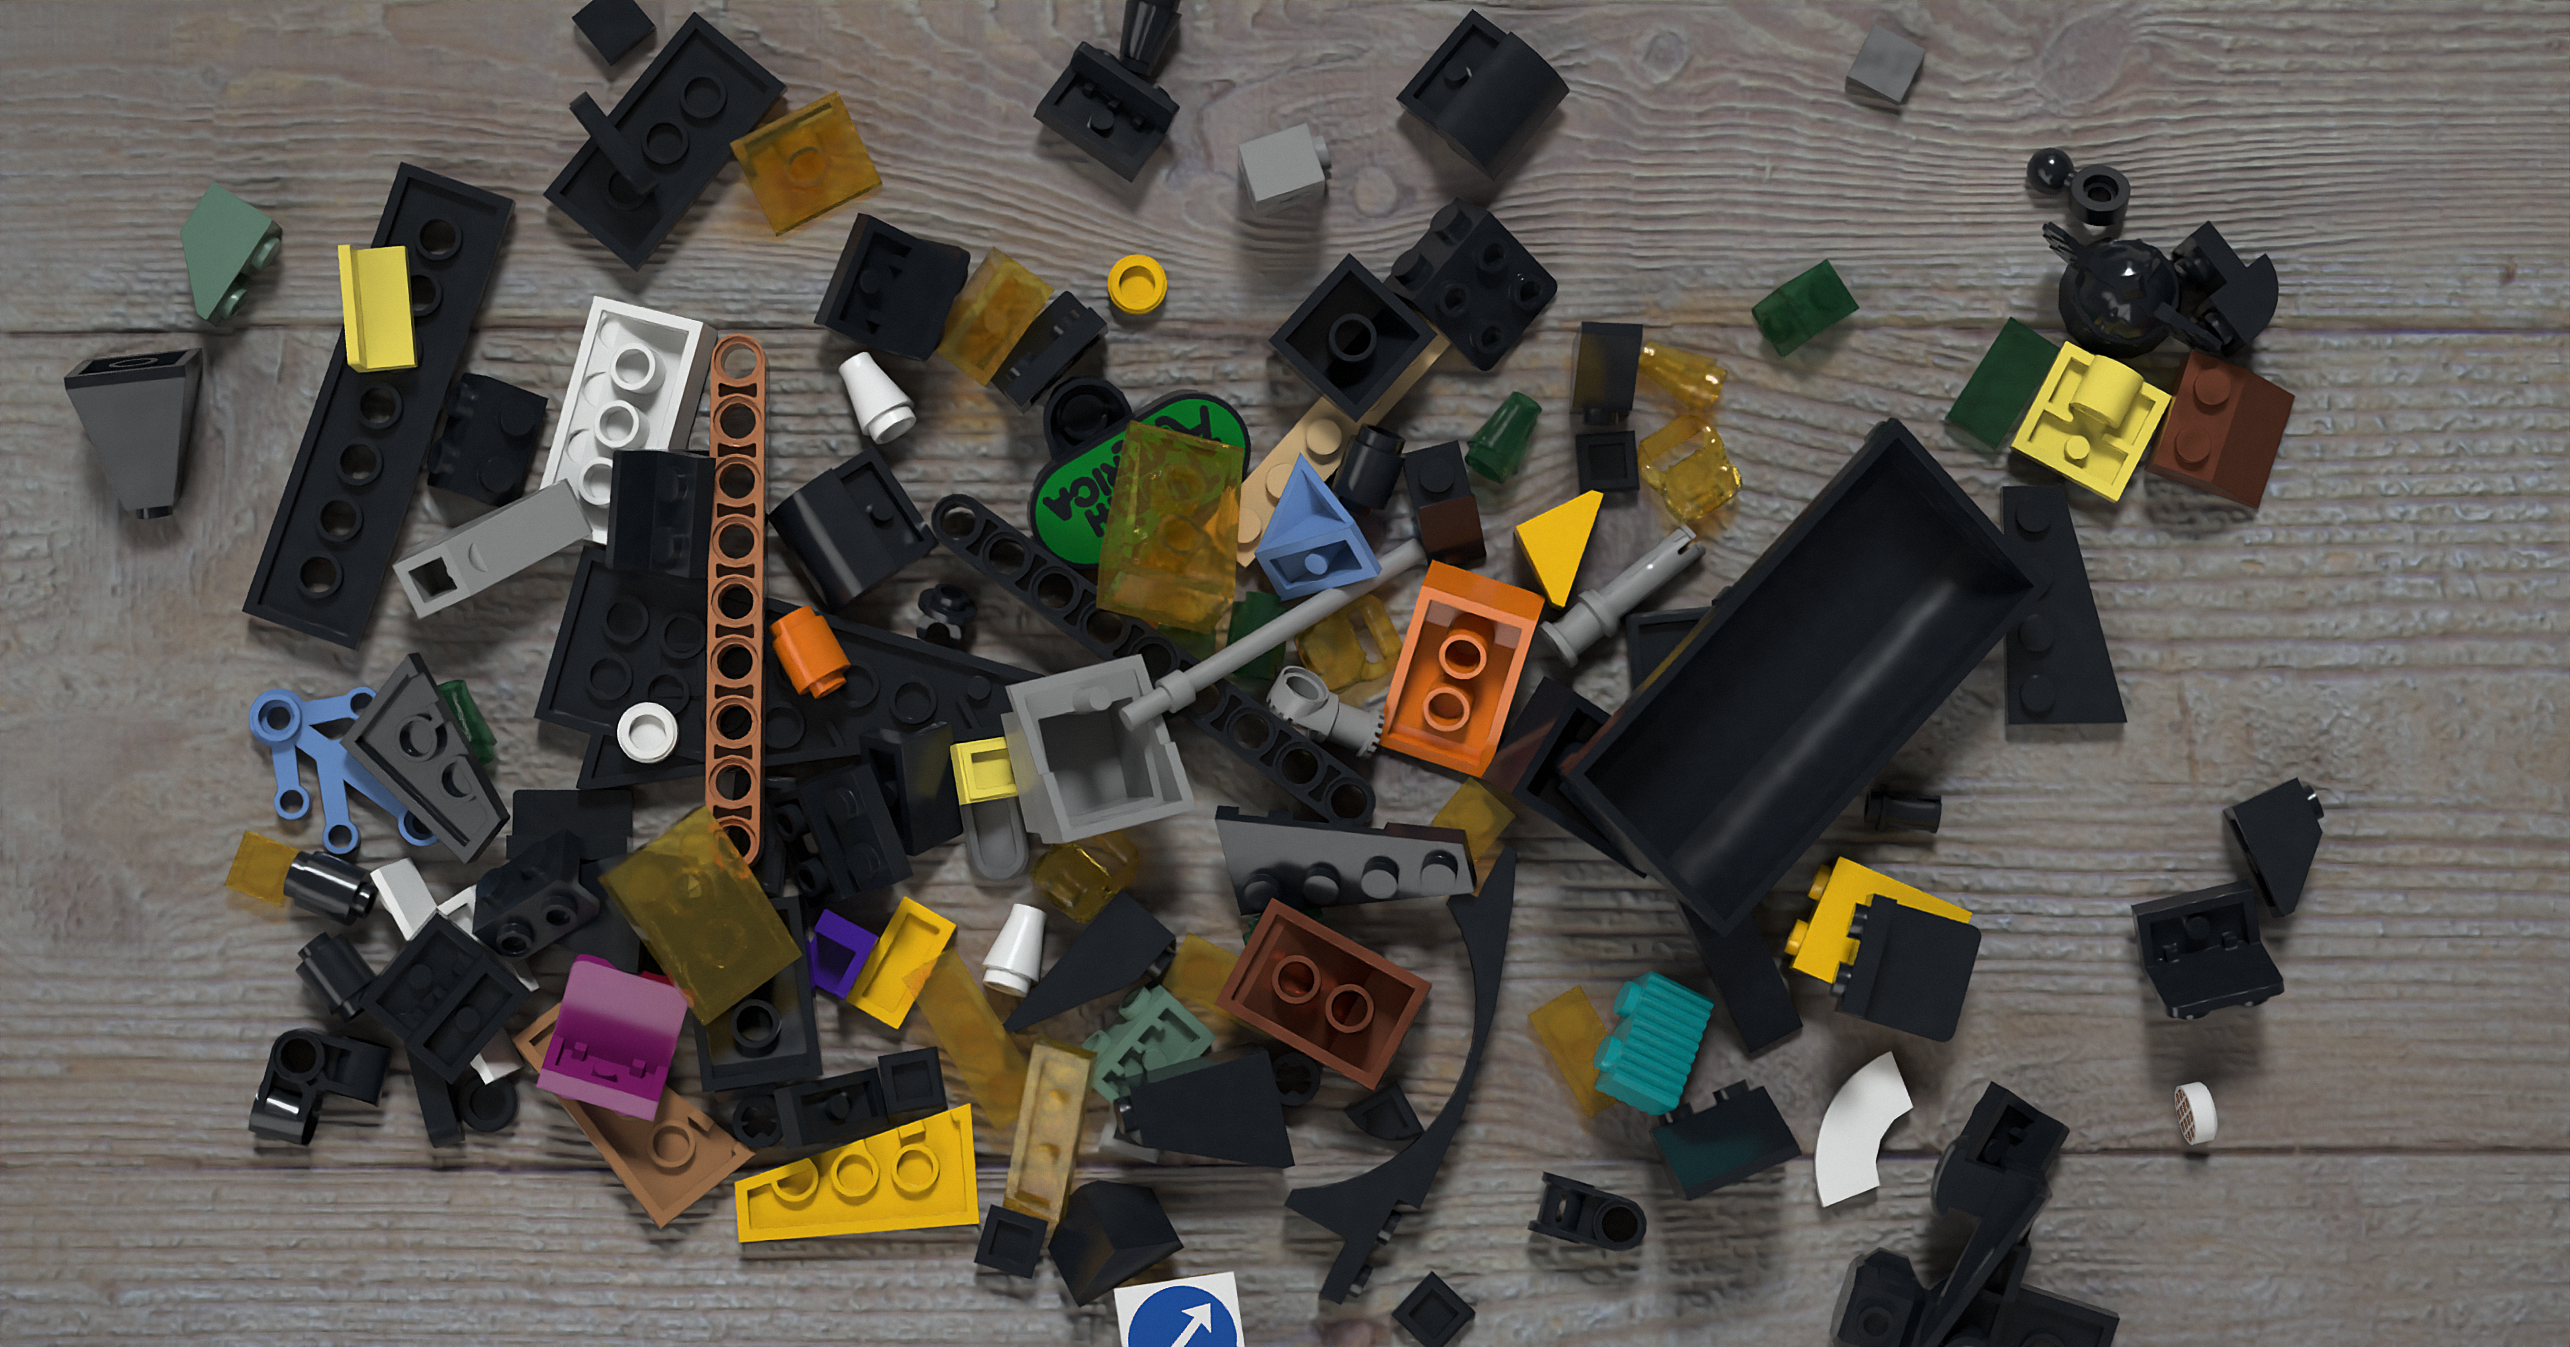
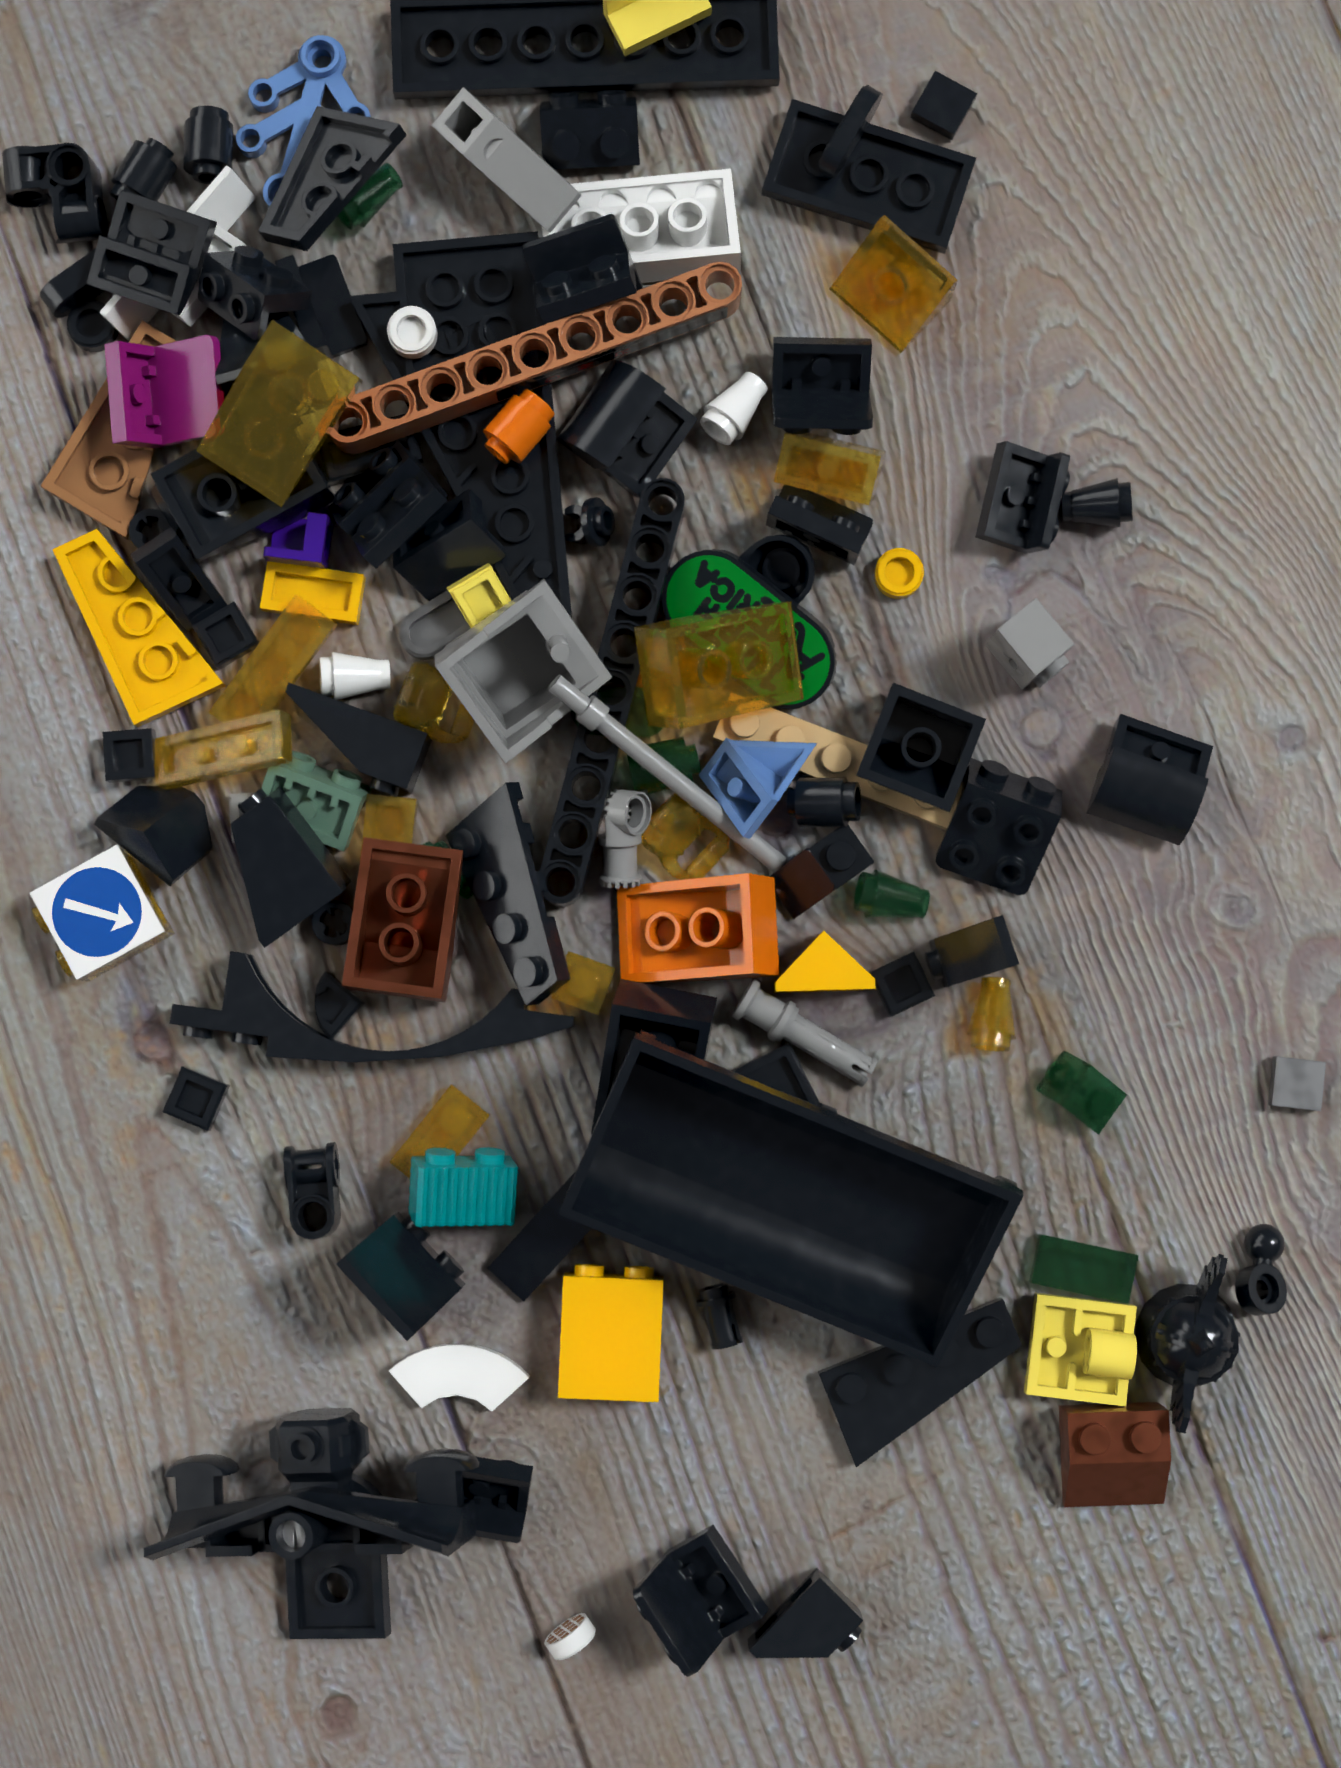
camera: 75 degrees right, 0 degrees up
(261, 868) = (205, 88): clear yellow tile -> none
(1698, 481) = (913, 1059): clear yellow piece -> none
(1905, 968) = (592, 1366): black bracket -> none
(2239, 296) = (1225, 1431): black brick -> none

